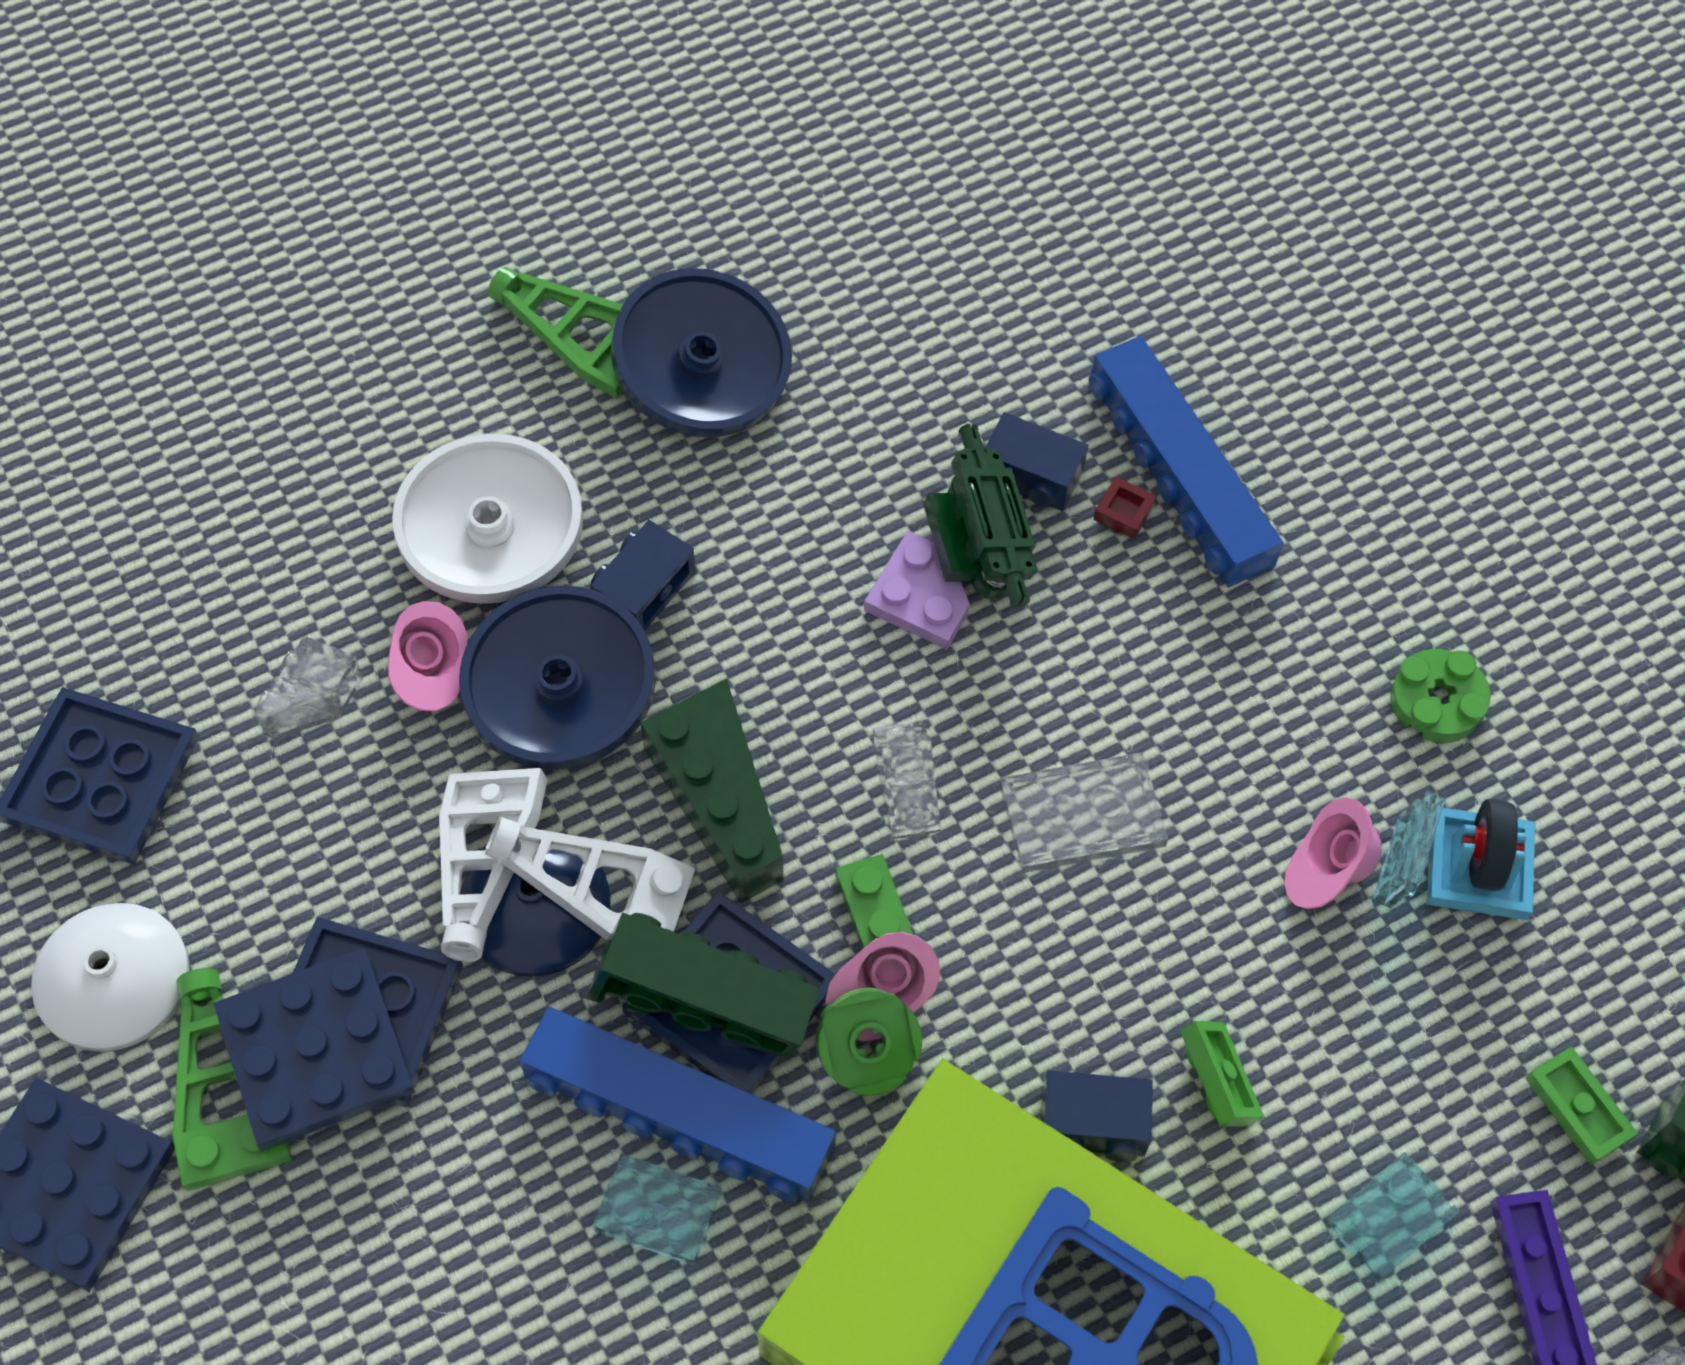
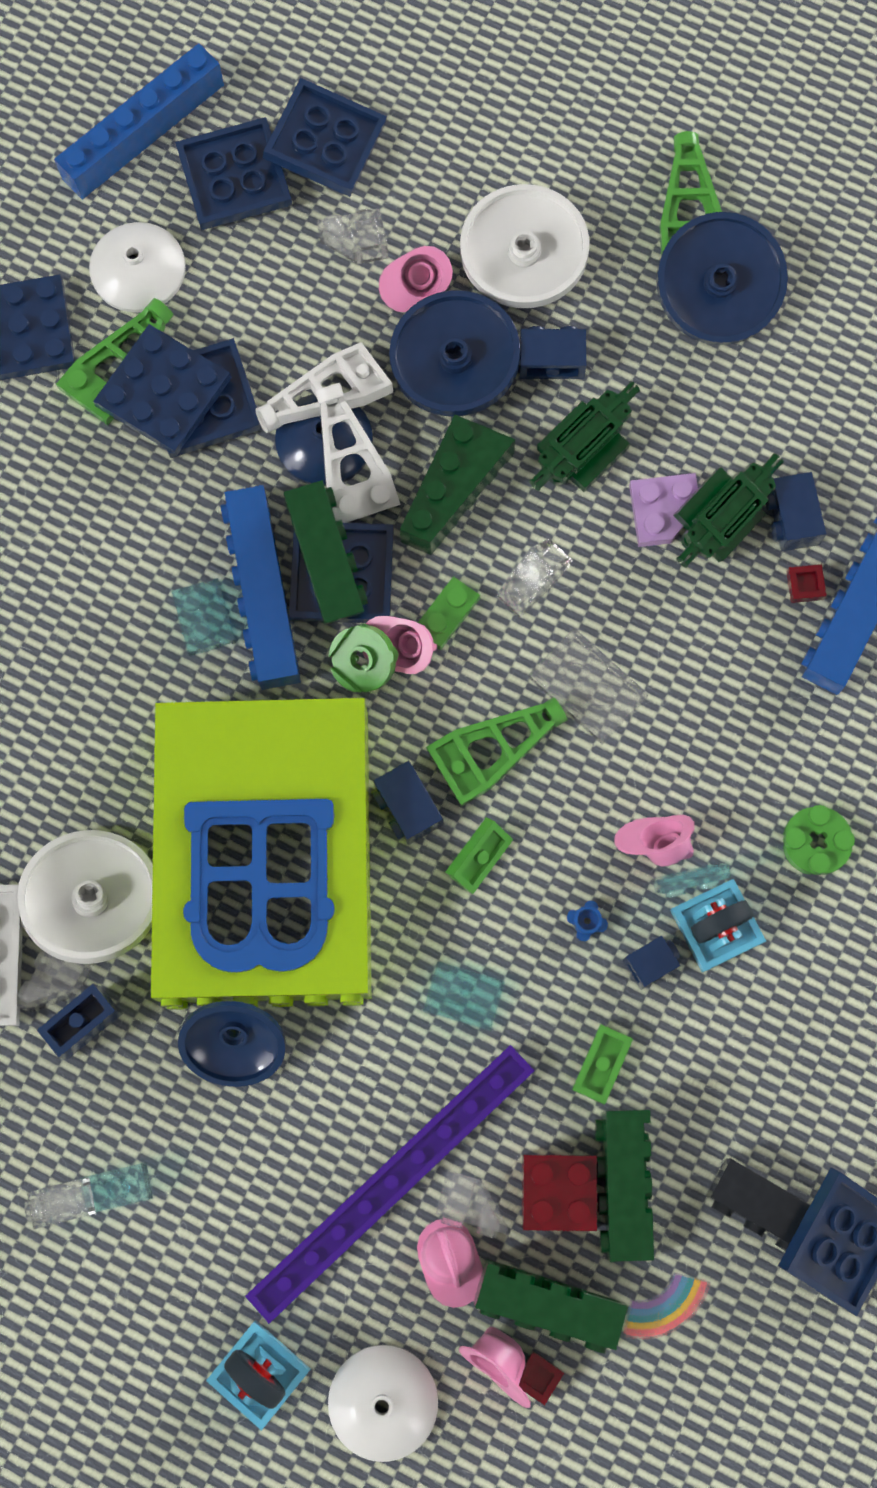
camera: 60 degrees right, 15 degrees up
(153, 639) = (324, 137): none -> dark blue plate
(781, 611) = (585, 441): none -> dark green piece
(1082, 1022) = (458, 766): none -> bright green plate
(1386, 991) = (590, 911): none -> blue plate
(1485, 963) = (652, 961): none -> dark blue brick

